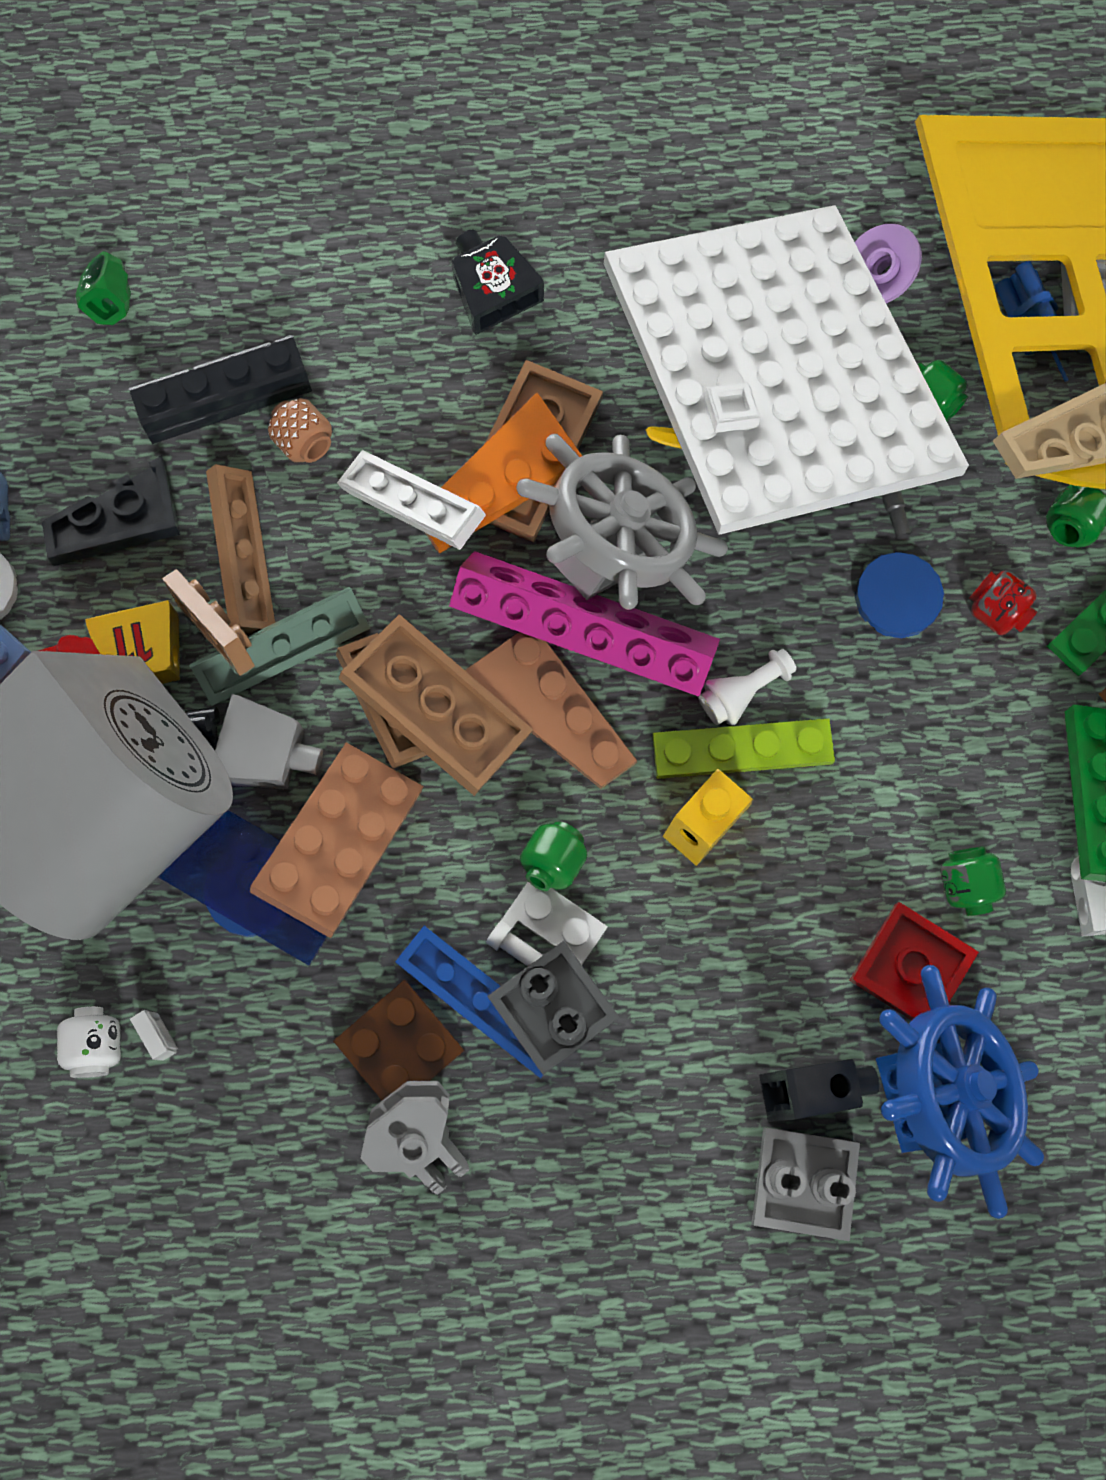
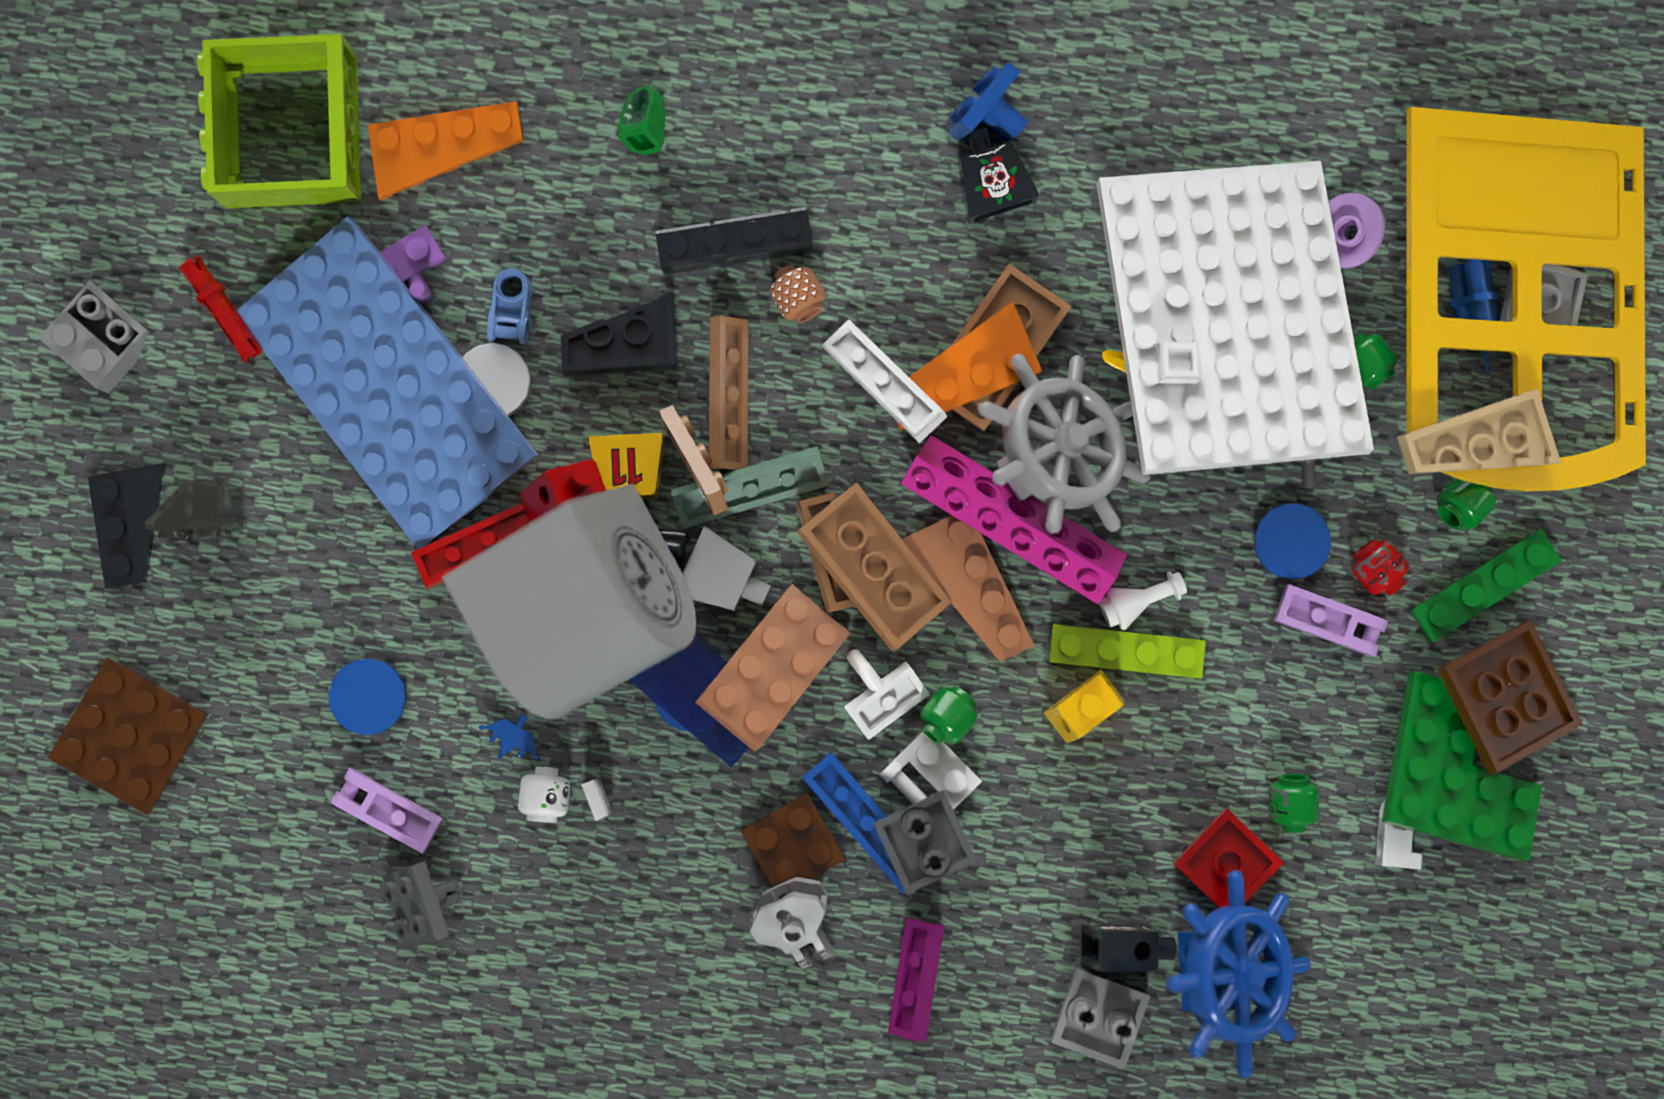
camera: 15 degrees right, 10 degrees up
(44, 982) = (512, 737): none -> blue piece
(473, 203) = (989, 107): none -> blue plate
(477, 850) = (885, 698): none -> white plate
(575, 1180) = (916, 979): none -> magenta plate
(962, 670) = (1329, 620): none -> lavender plate

